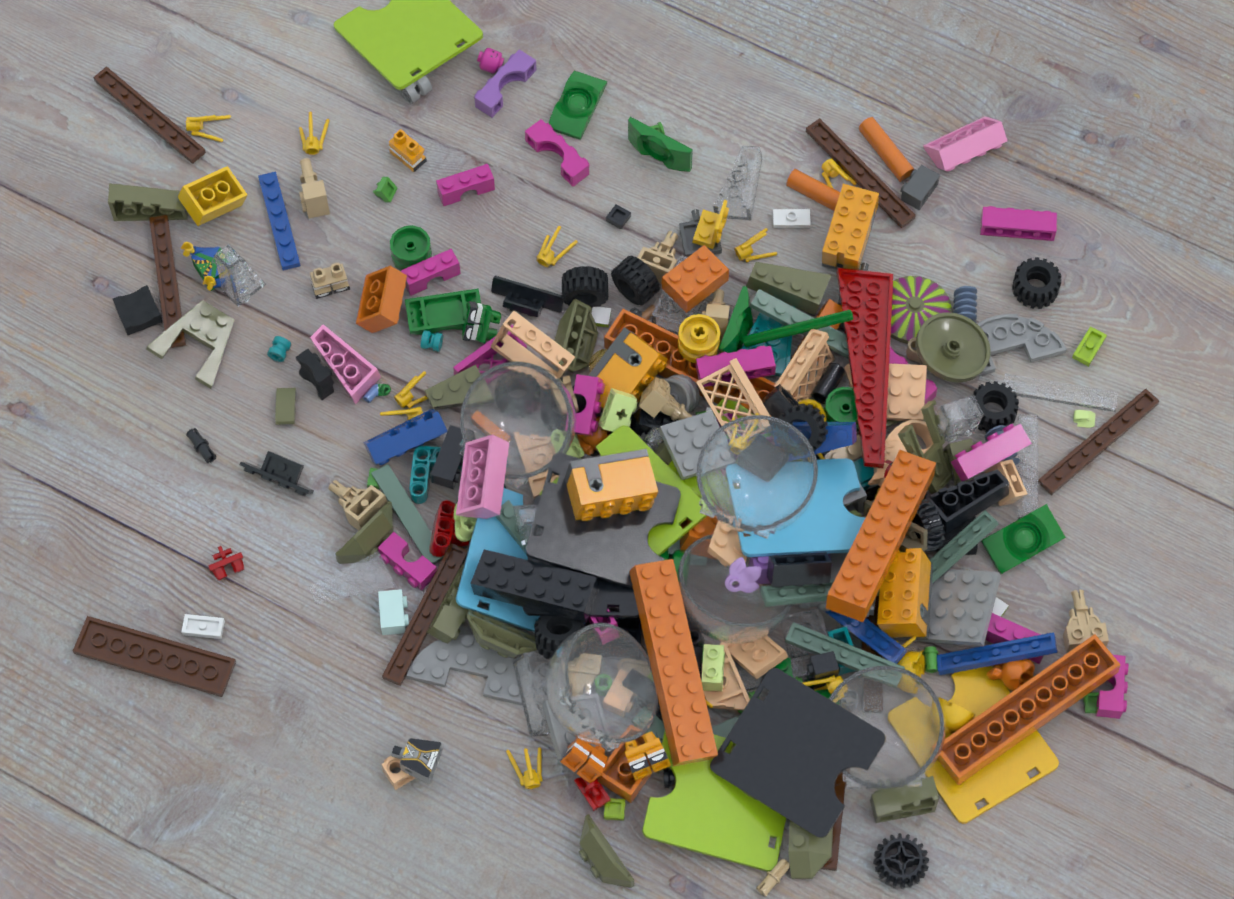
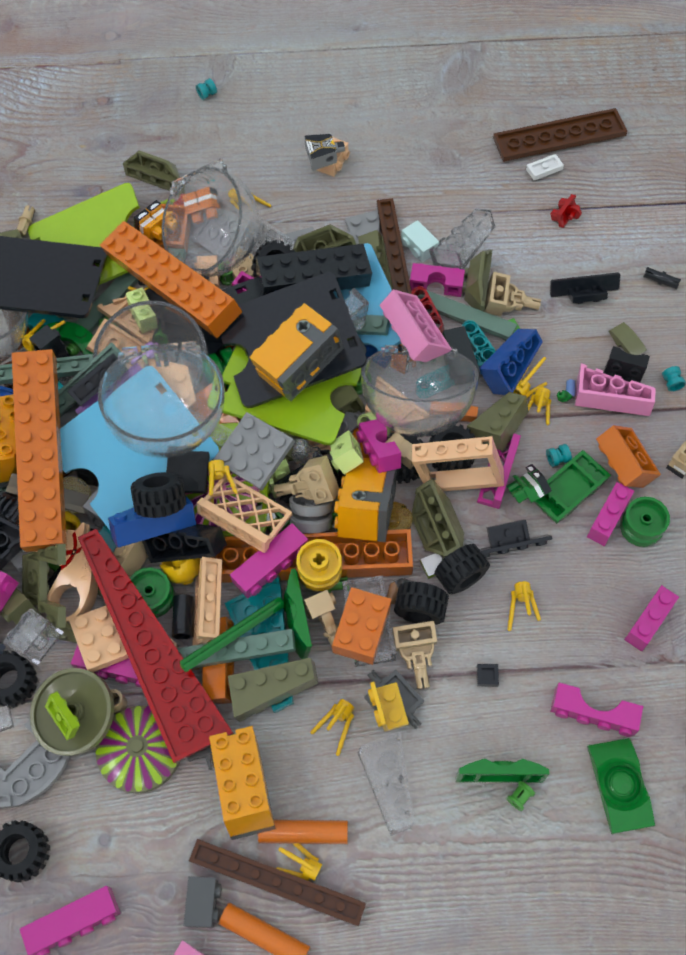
camera: 150 degrees right, 0 degrees up
(791, 218) = (318, 781): white plate -> none
(962, 342) = (62, 715): none -> lime plate
(965, 302) = (83, 777): sand blue piece -> none

